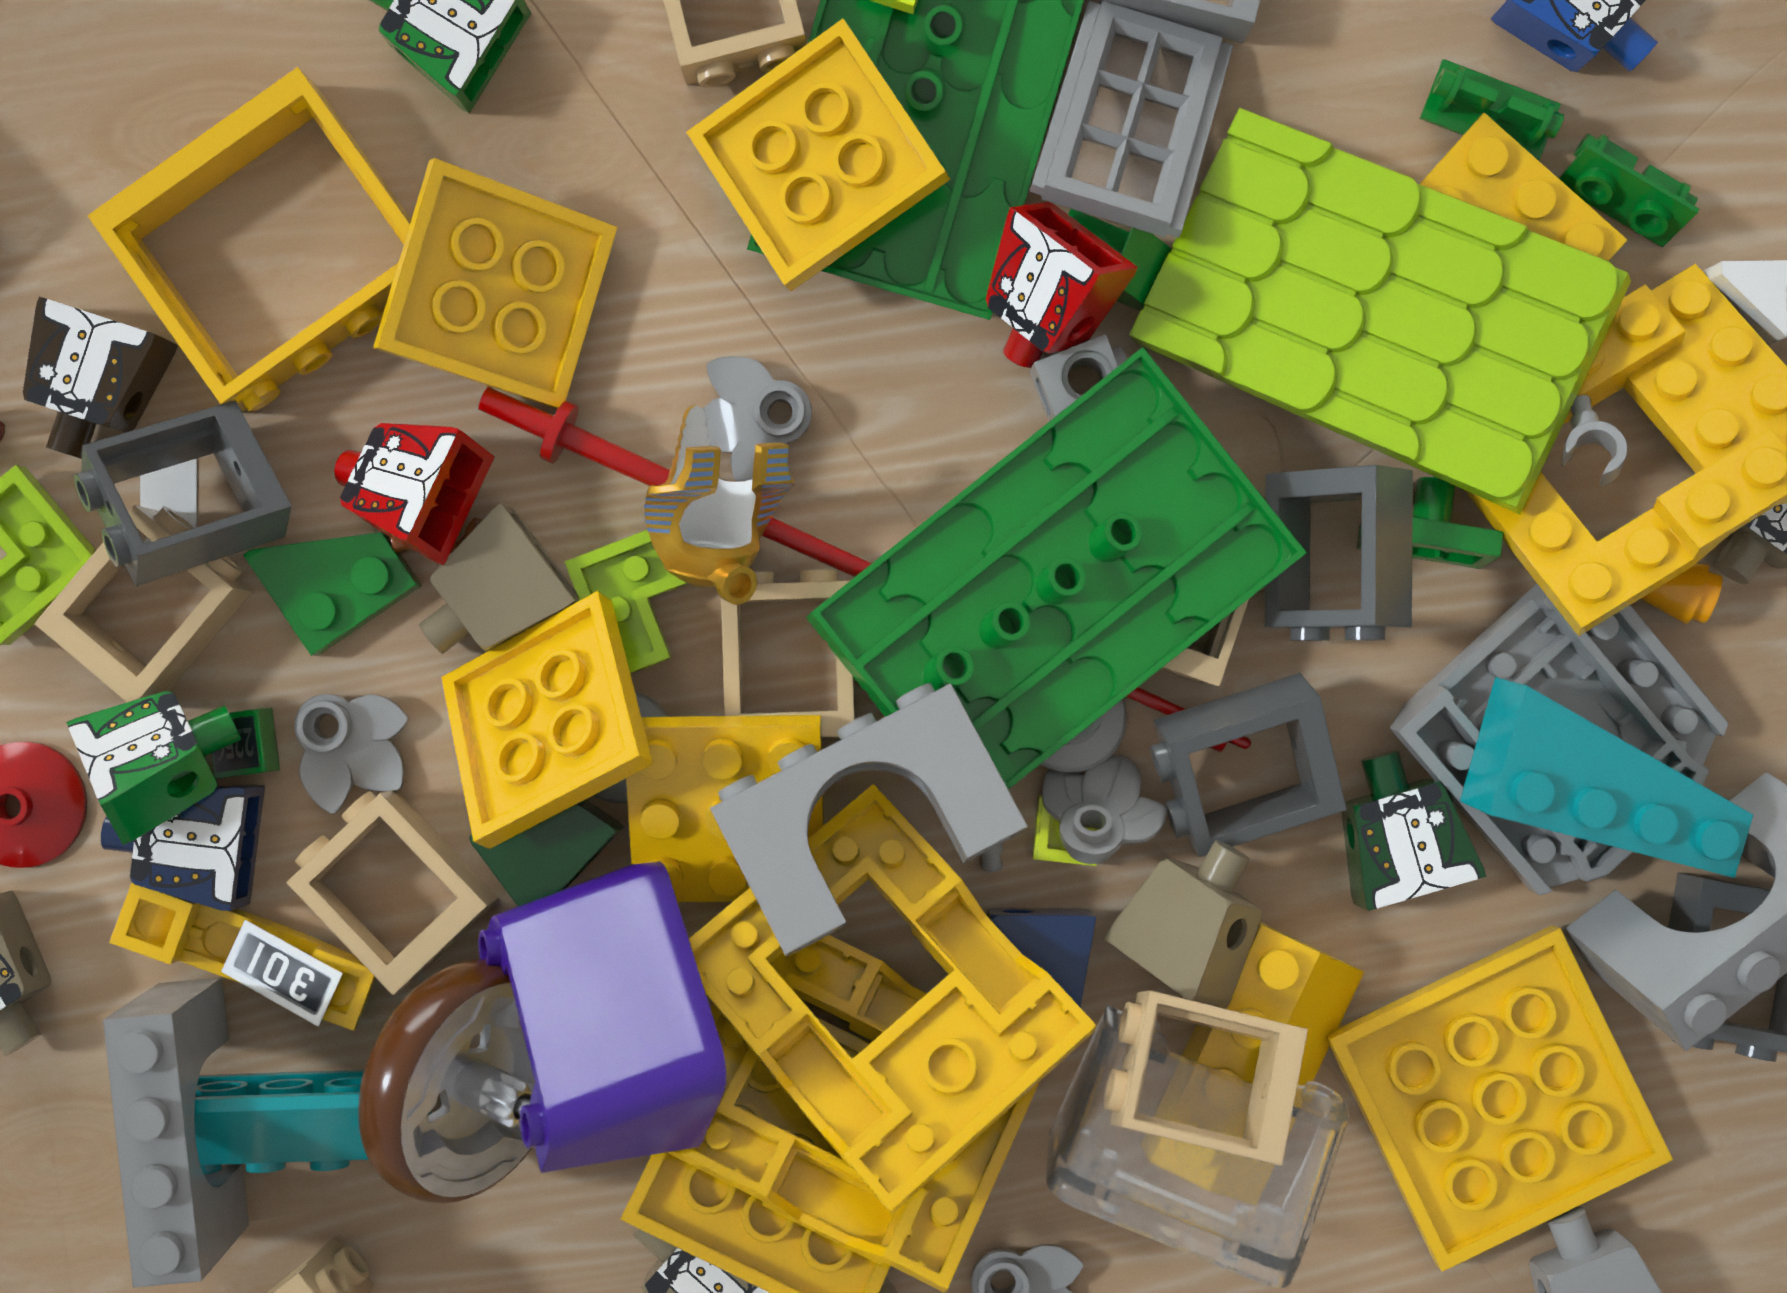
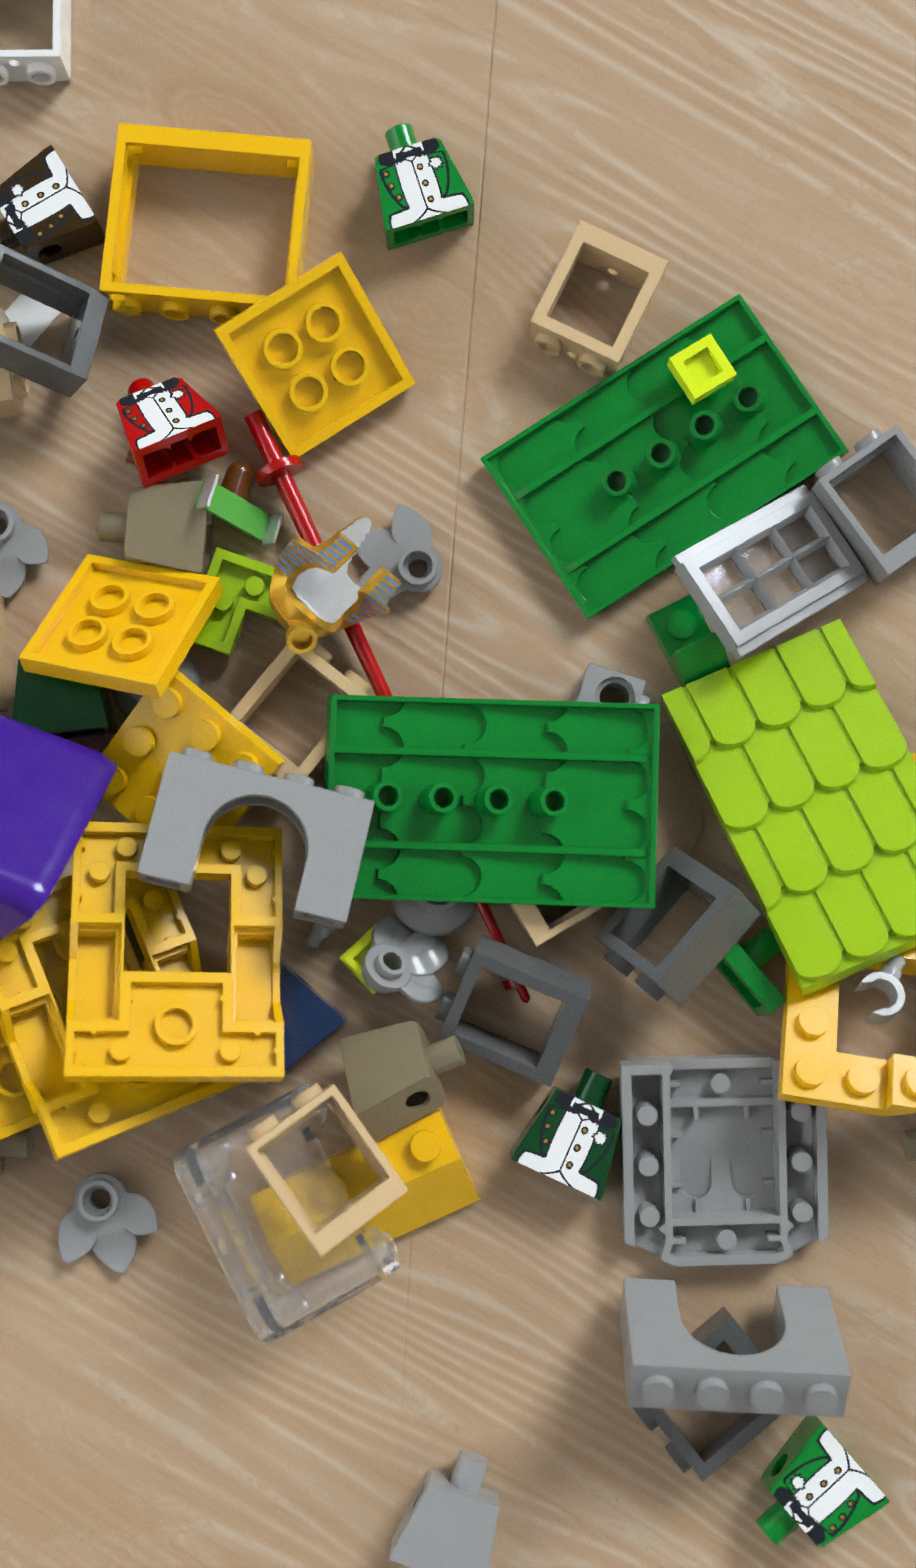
camera: 35 degrees right, 5 degrees down
(333, 584) = (73, 449): green wing -> none
(540, 507) = (231, 503): none -> piece
(817, 155) = (565, 437): yellow plate -> none
(1052, 281) = (641, 624): torso -> none
(1498, 1097) = (495, 1348): yellow plate -> none
(1579, 780) = (705, 1189): teal wedge -> none
(1688, 595) = (868, 1134): light orange cone -> none

